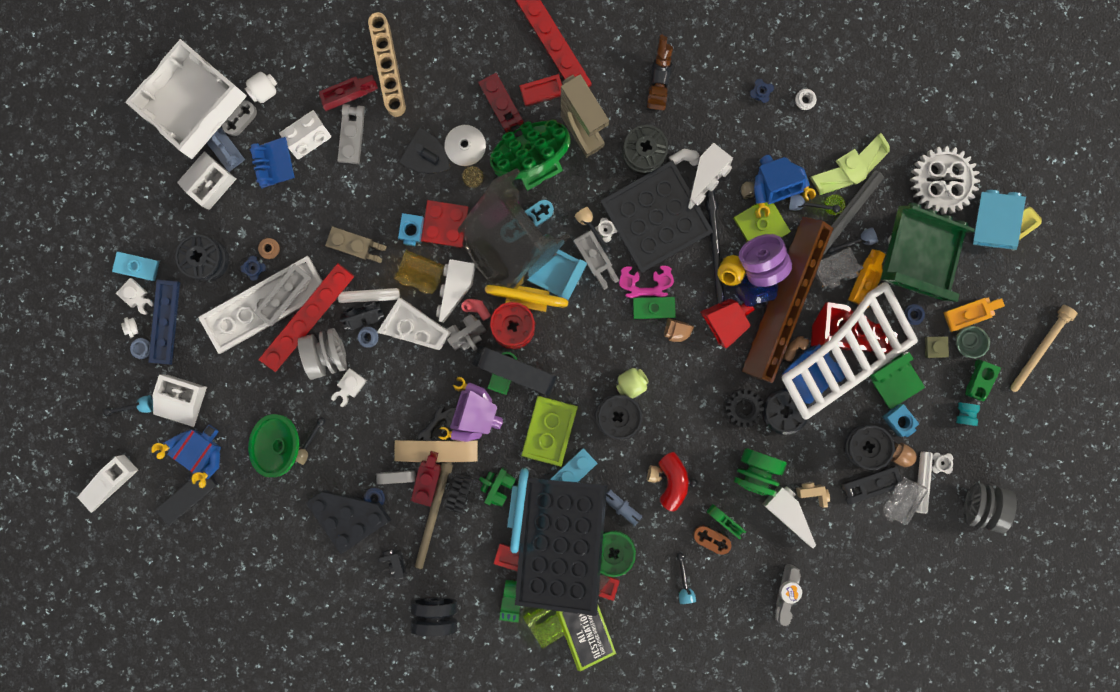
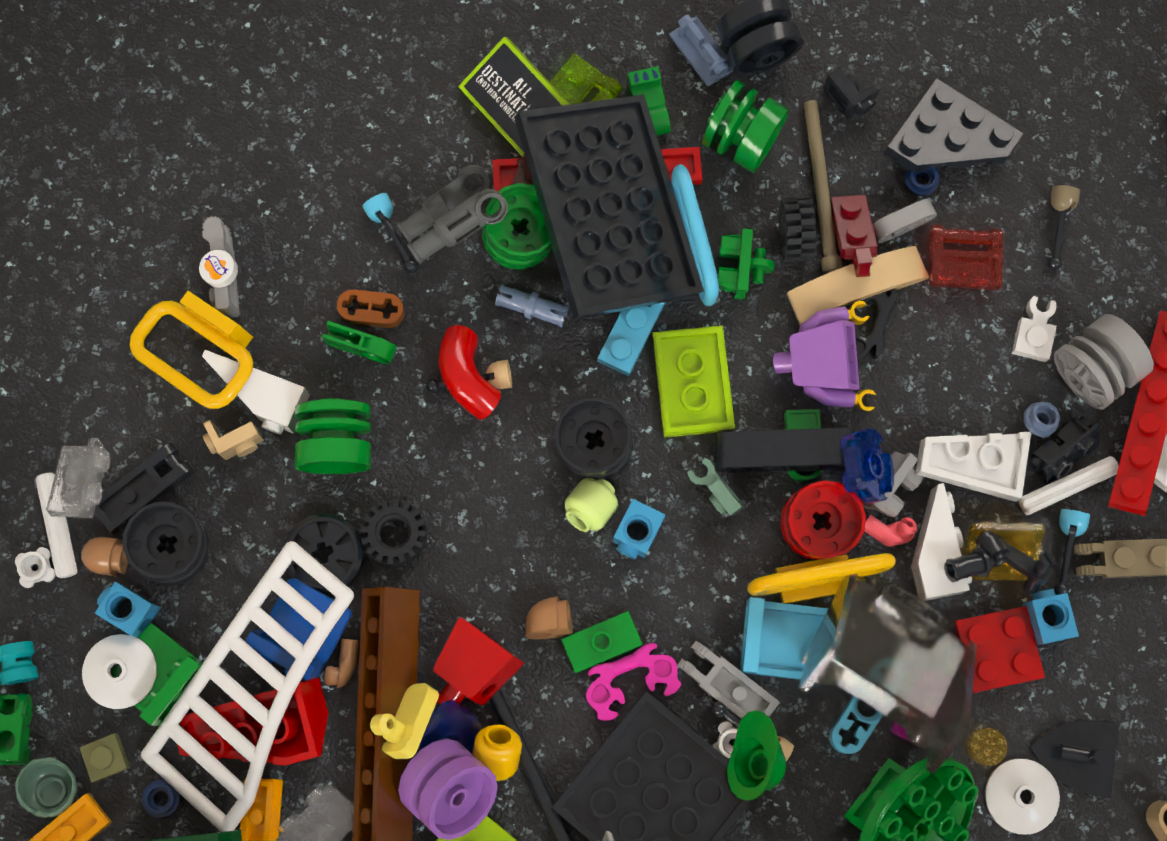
camera: 160 degrees right, 10 degrees down
(273, 445) = (1112, 195): green dish -> none
(373, 437) = (965, 267): none -> clear red plate
(376, 273) = (1073, 524): none -> hinge
(428, 274) = (994, 552): none -> black pin
(464, 564) = (744, 126): none -> green wheel
(468, 623) = (701, 50): none -> sand blue hinge
(479, 343) = (867, 468): none -> clear blue plate
(559, 362) = (723, 496): none -> sand green plate
(599, 214) = (756, 757): none -> green piece
(603, 362) = (645, 515): none -> dark azure brick
(653, 567) = (453, 214): none -> dark grey connector
(773, 301) = (409, 724): none -> light yellow piece
(803, 560) = (212, 326): none -> yellow bar
(905, 391) = (137, 674): none -> white dish

